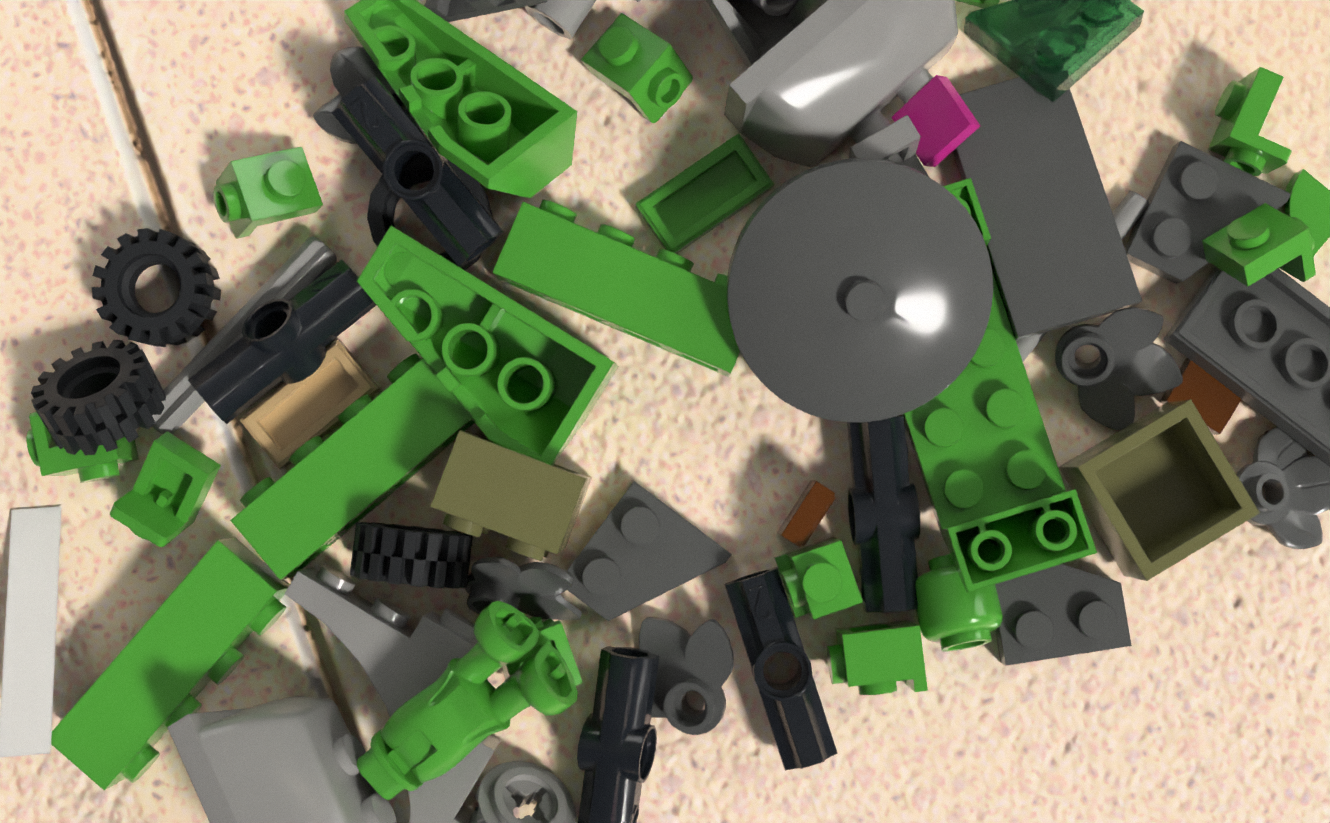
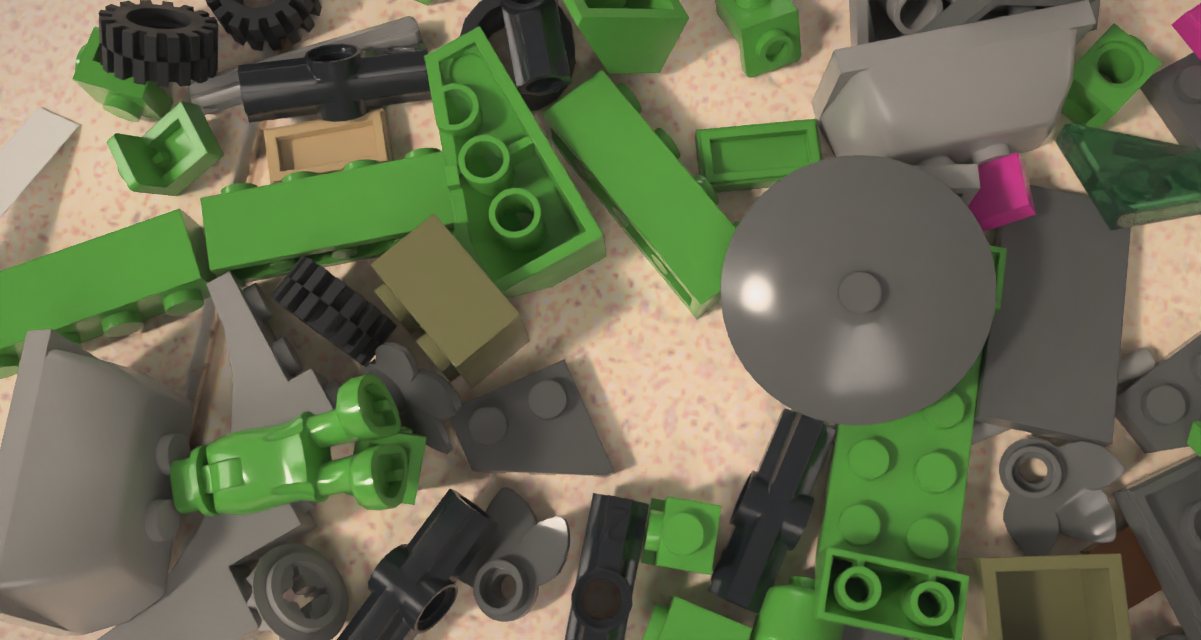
camera: 30 degrees right, 10 degrees down
(807, 513) = (702, 470): reddish brown tile -> none

